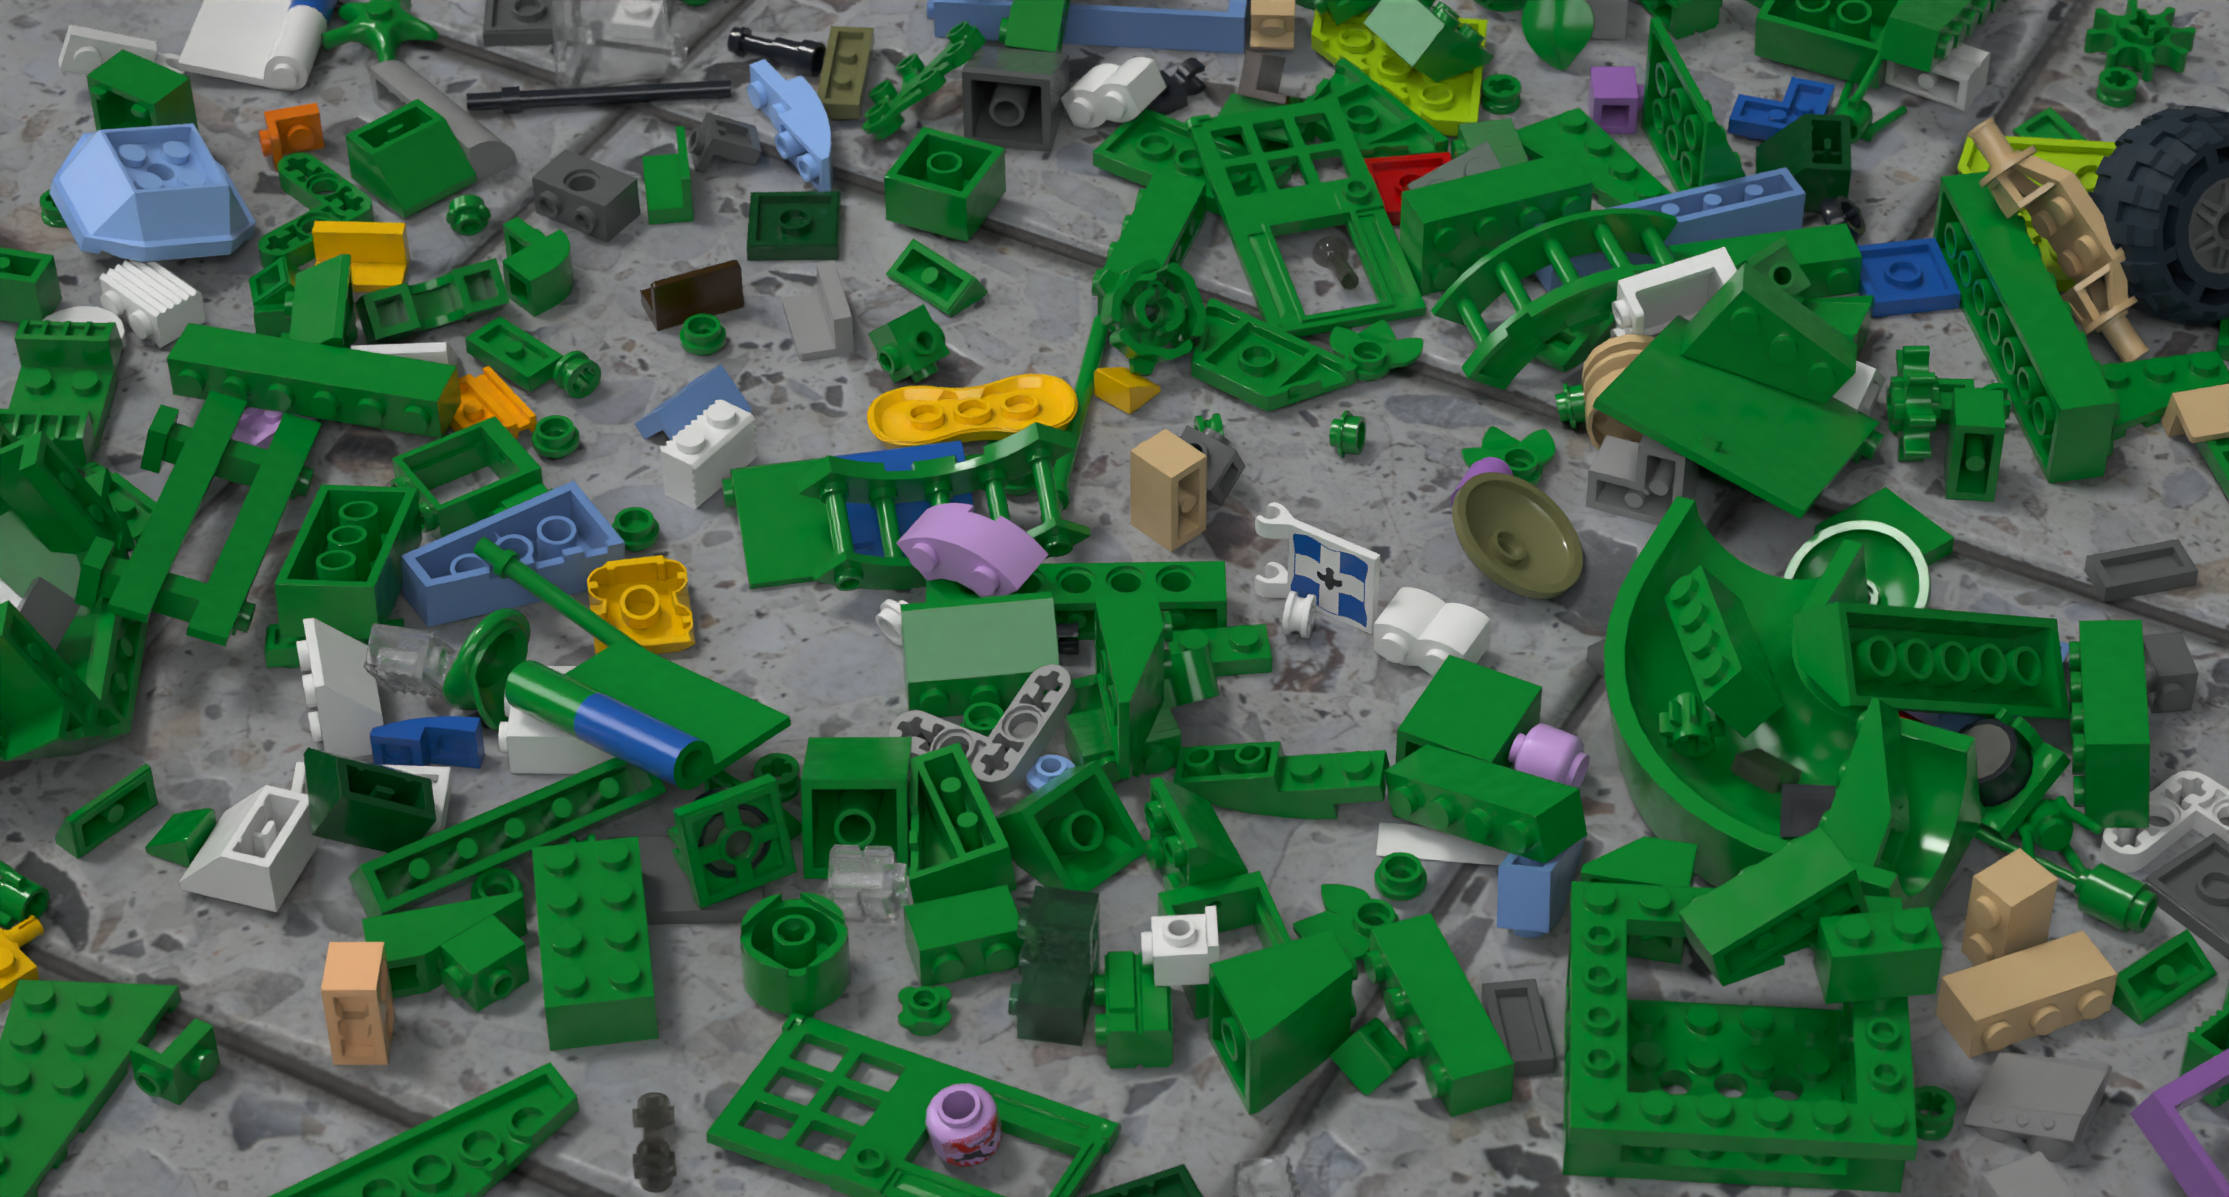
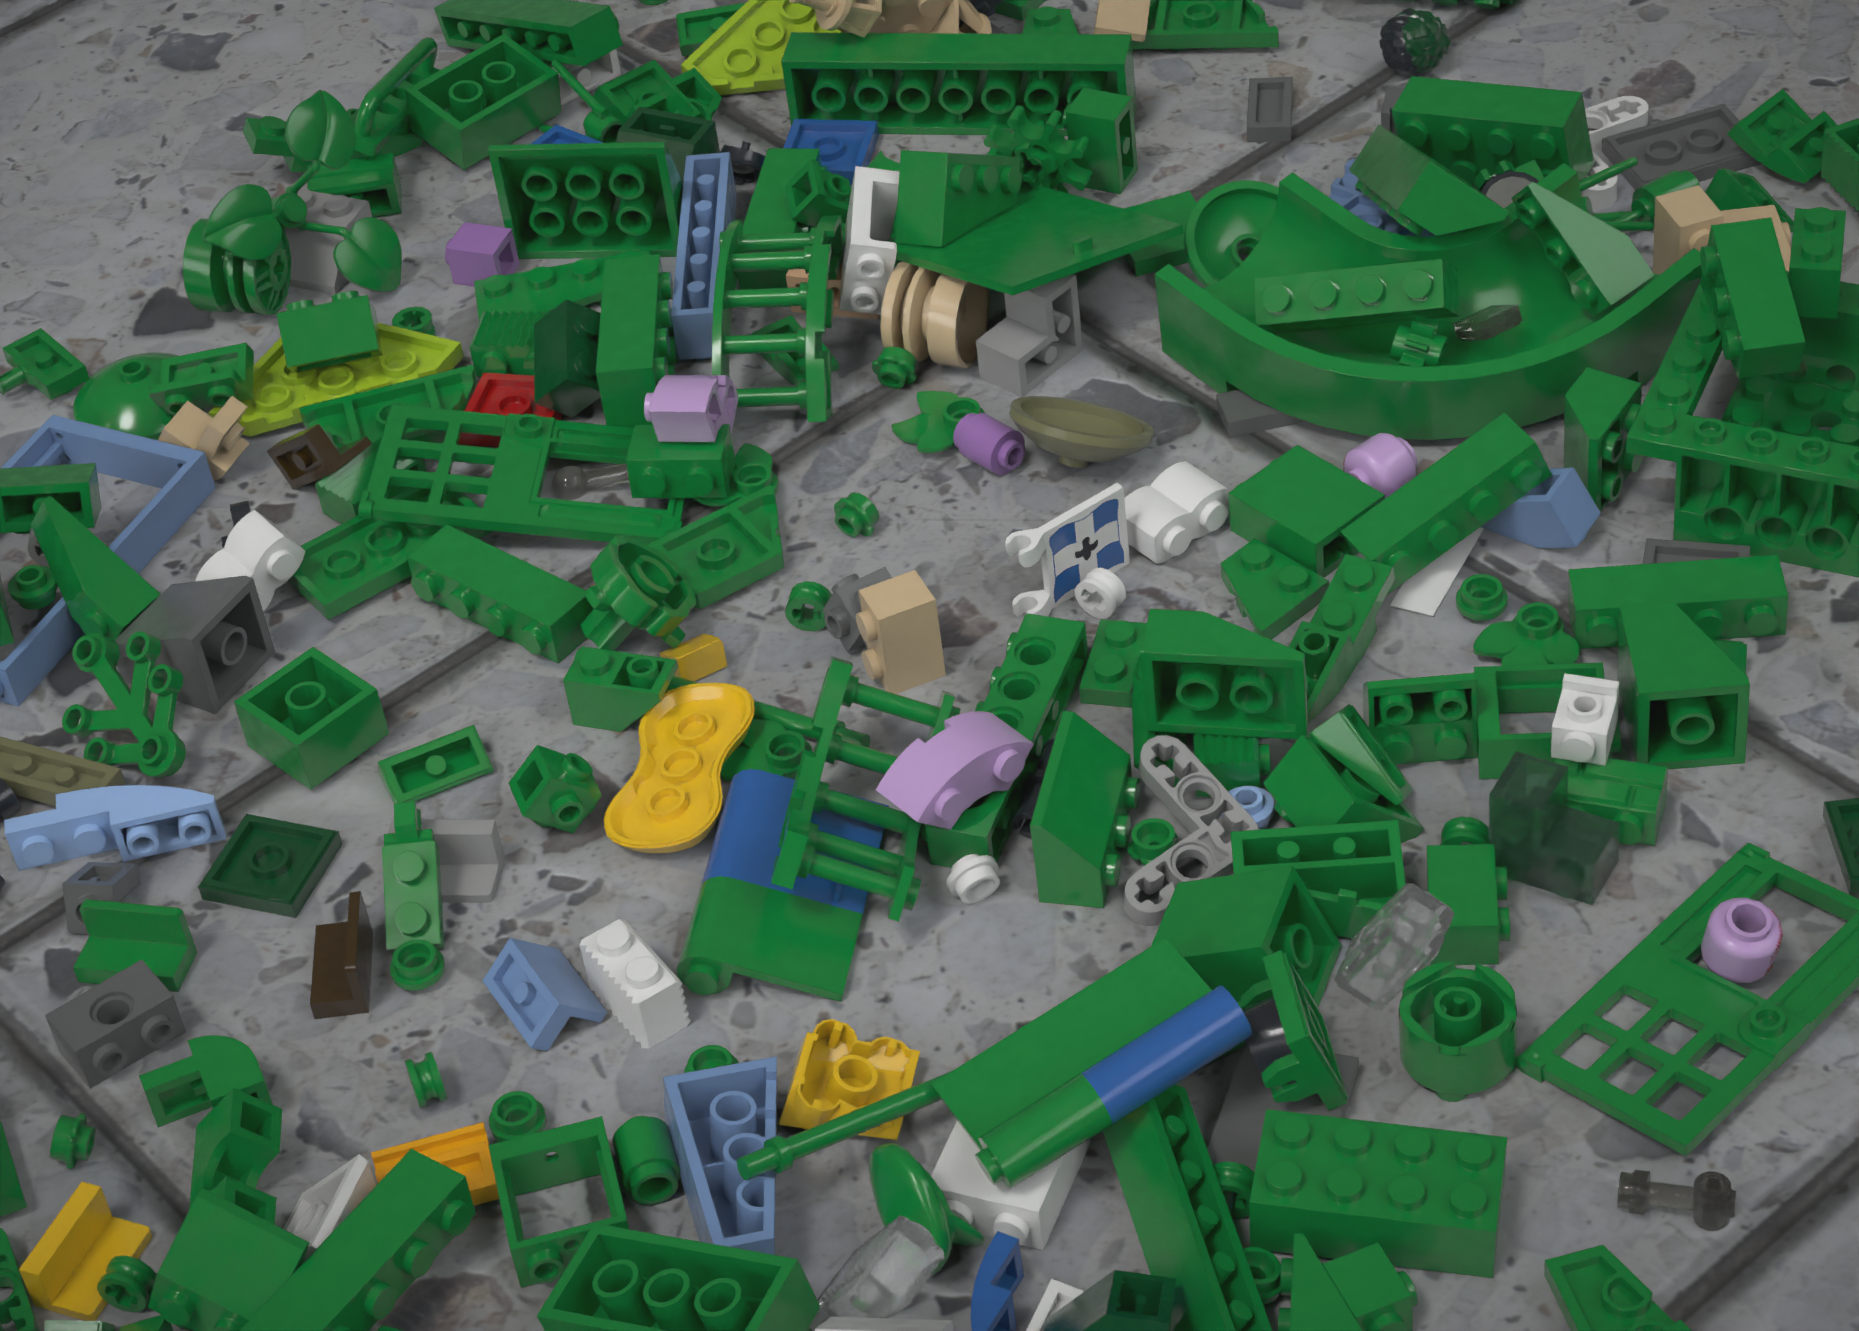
camera: 65 degrees left, 0 degrees up
(513, 353) = (352, 1129): green plate -> none
(776, 296) = (411, 881): none -> green hinge
(924, 1009) = (1545, 957): green plate -> none
(1048, 337) = (615, 687): none -> green slope
(1114, 825) = (1355, 746): none -> green slope
(1351, 296) = (679, 467): none -> green brick
(1358, 724) = (1271, 587): none -> green wing
(1396, 267) = (691, 407): none -> lavender brick
(1803, 808) = (1549, 306): black plate -> none
(1909, 145) = (654, 89): none -> green slope

